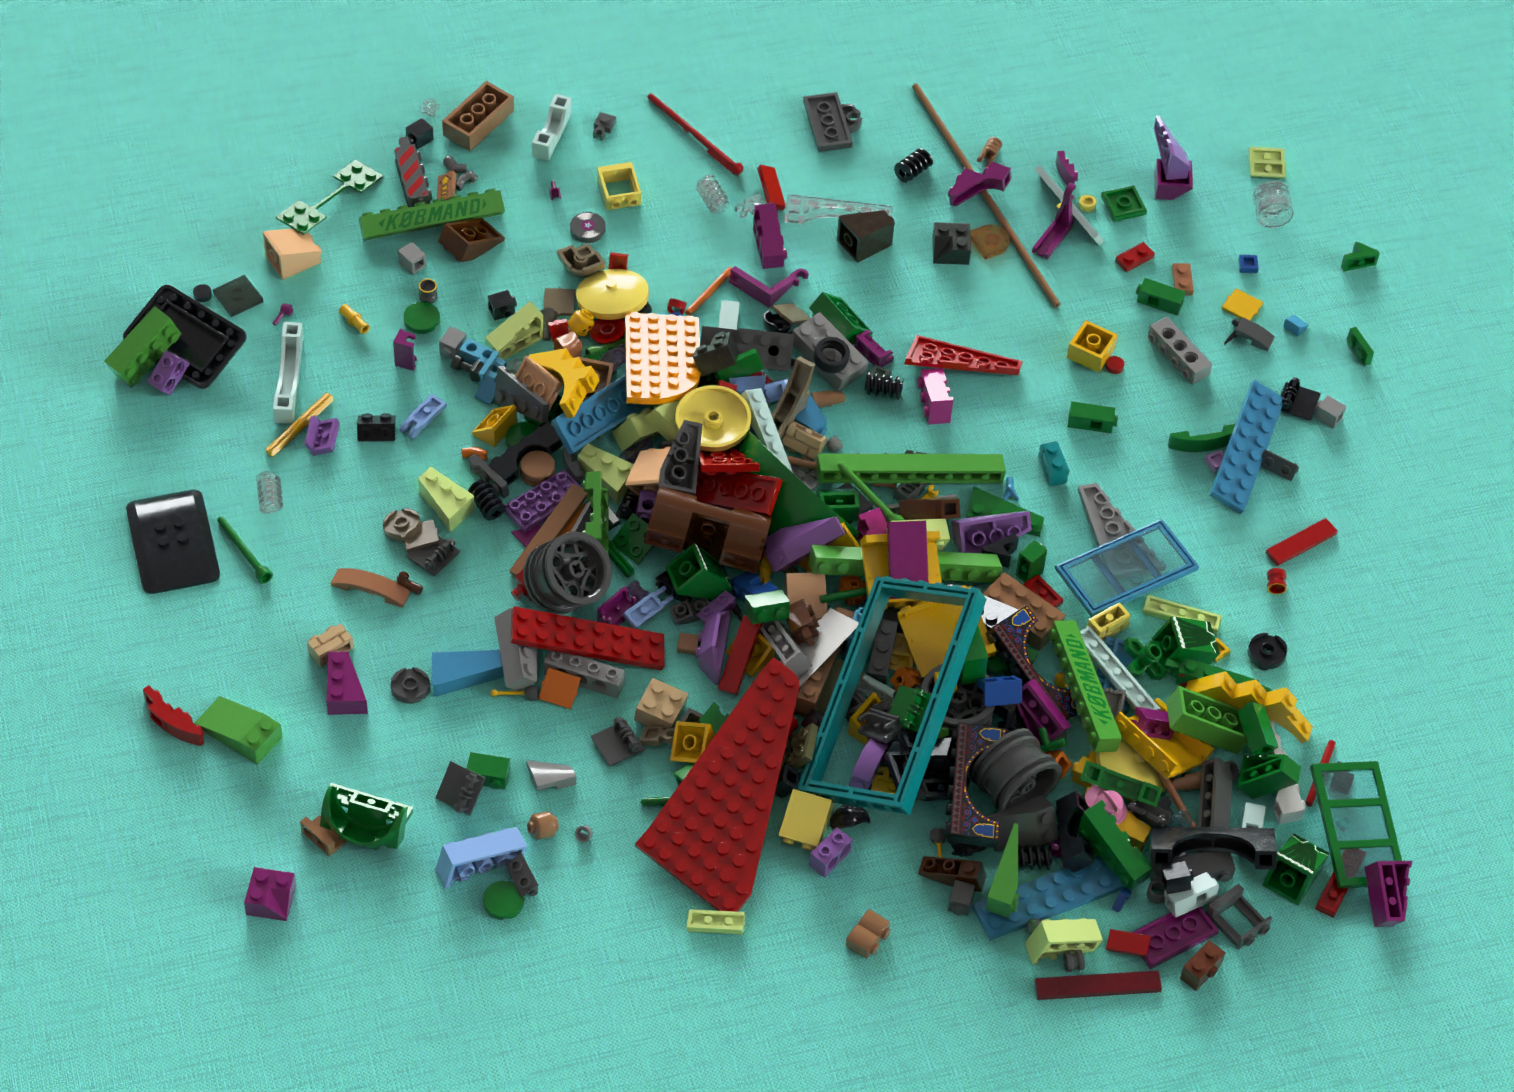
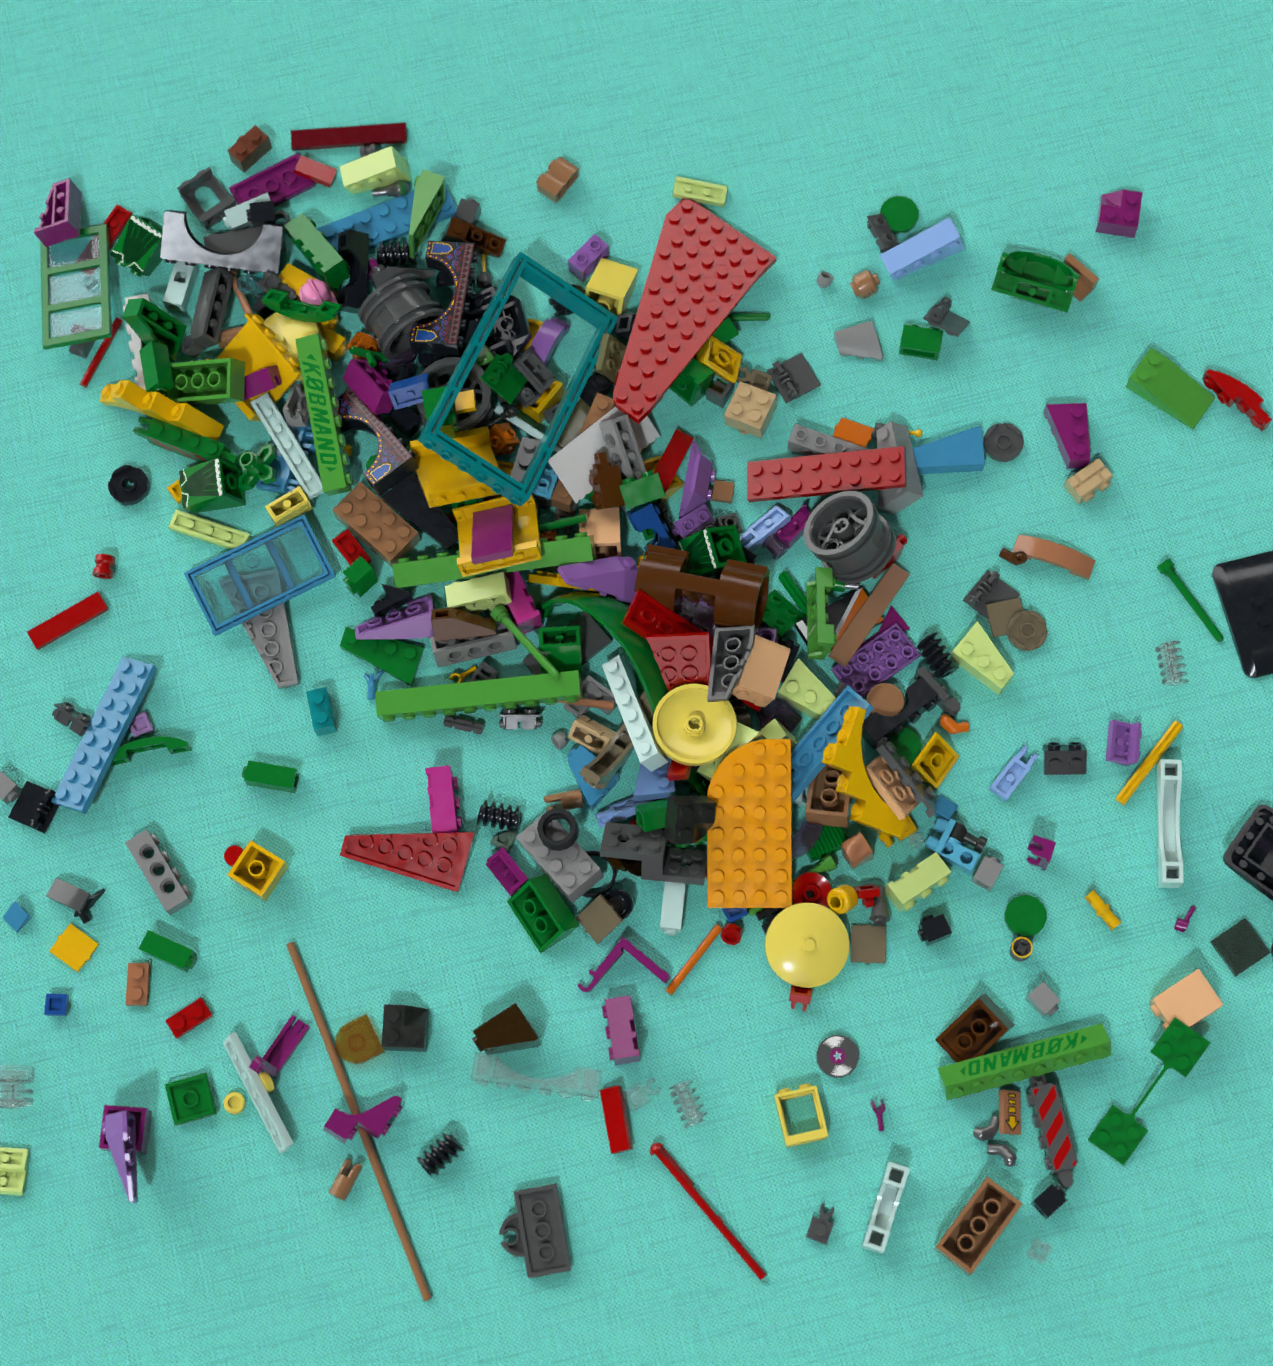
camera: 170 degrees left, 20 degrees up
(581, 260) = (844, 991): dark tan brick -> none
(1065, 169) = (252, 1145): magenta slope -> none
(1122, 896) = (317, 214): blue tile -> none

